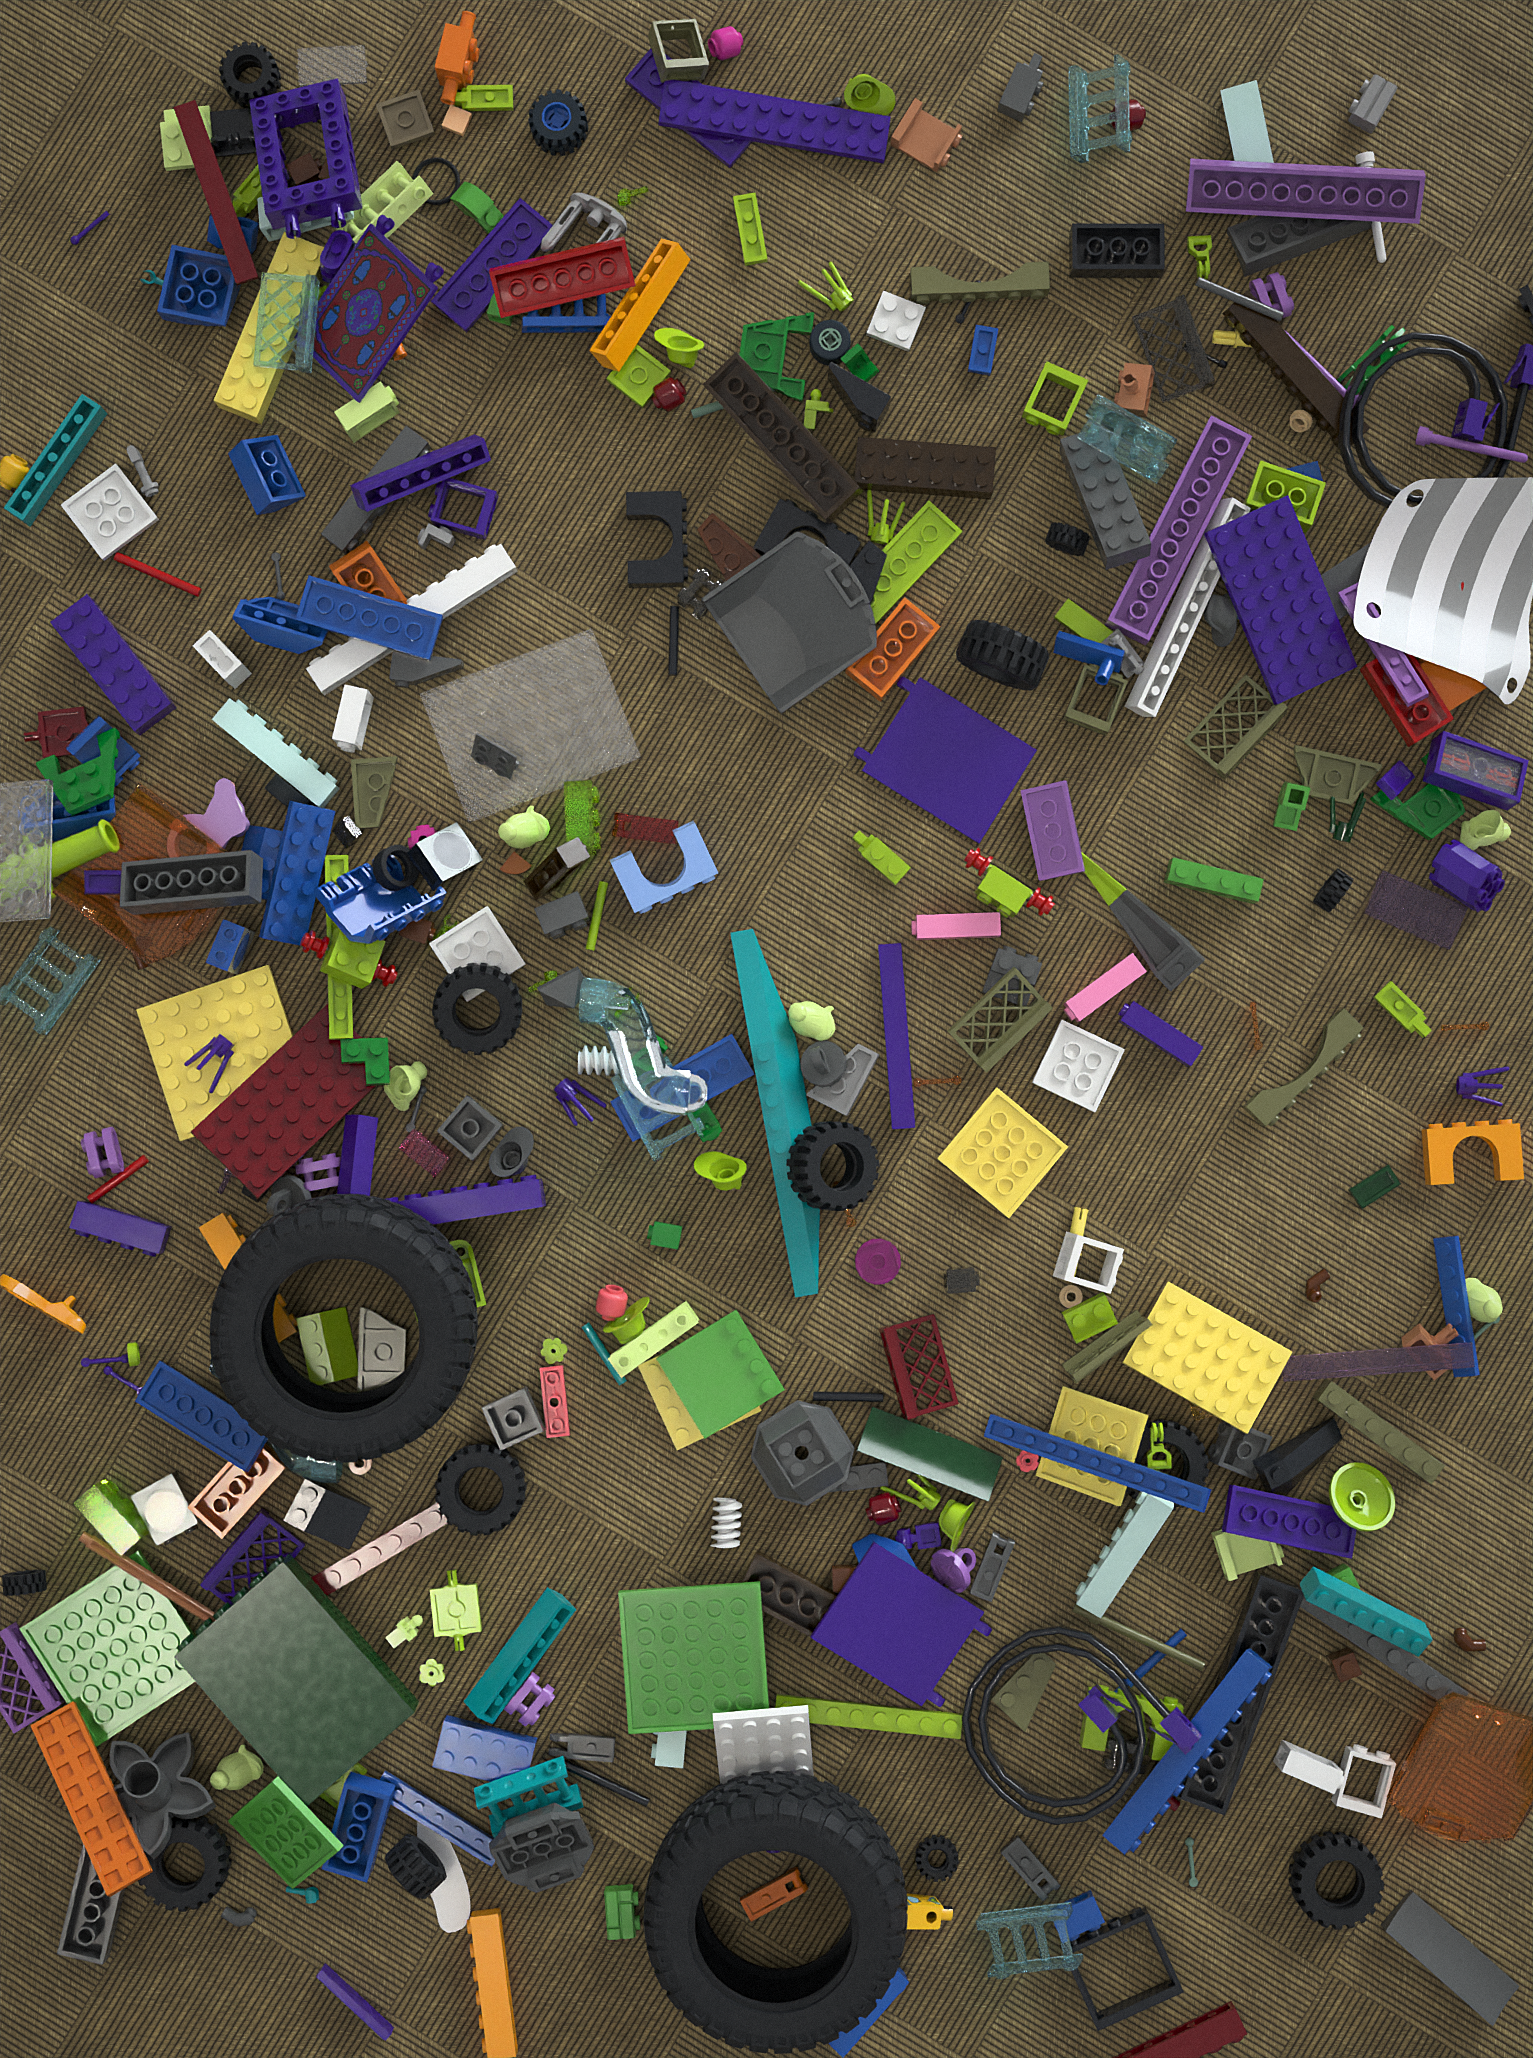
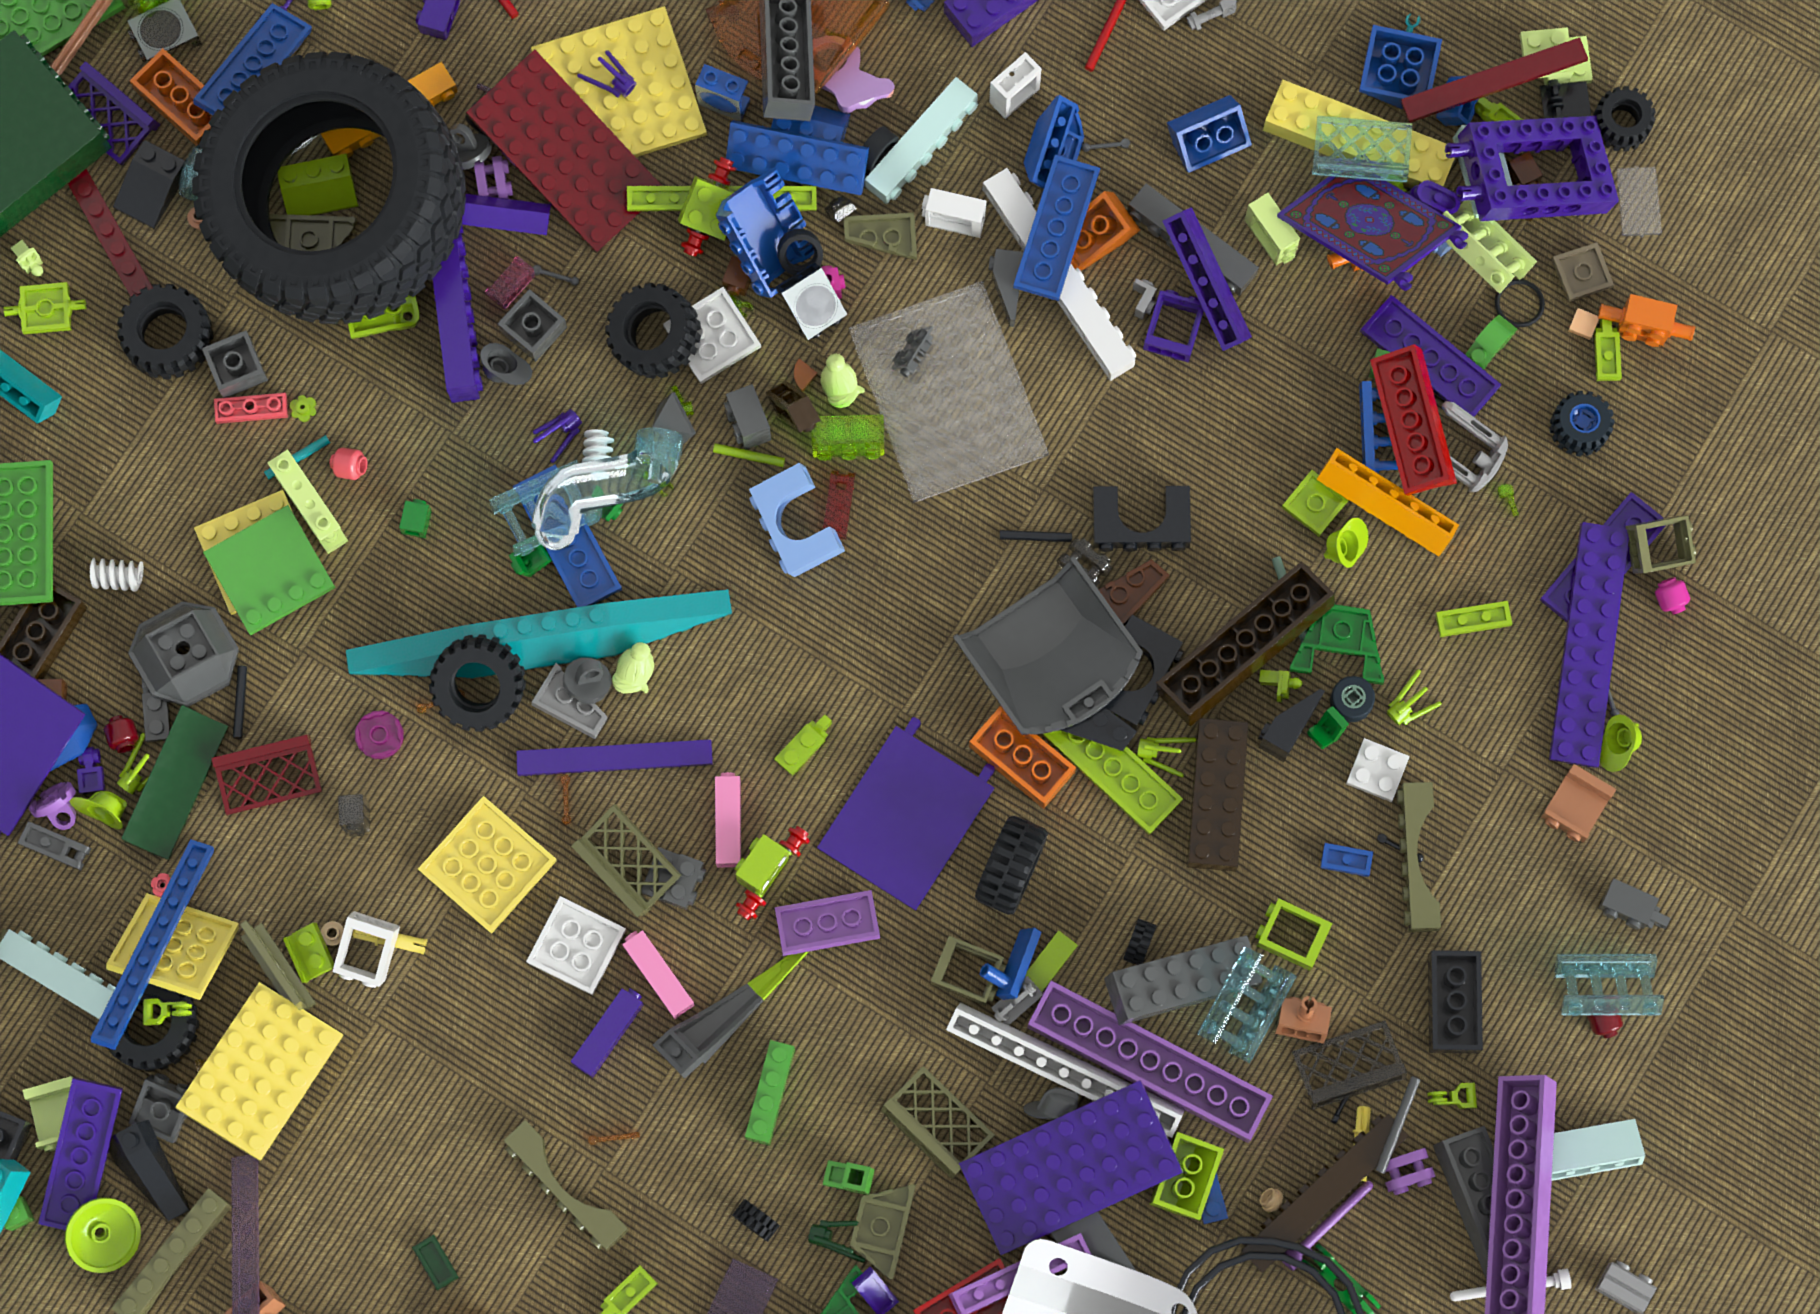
camera: 95 degrees right, 10 degrees down
(372, 1053) = (610, 232): green plate -> none
(405, 1084) = (581, 263): yellowish green hair -> none
(630, 1324) = (324, 480): lime piece -> none
(669, 394) = (1295, 533): dark red head -> none
(721, 1169) = (480, 573): lime piece -> none
(1313, 1285) = (331, 1193): reddish brown arm -> none

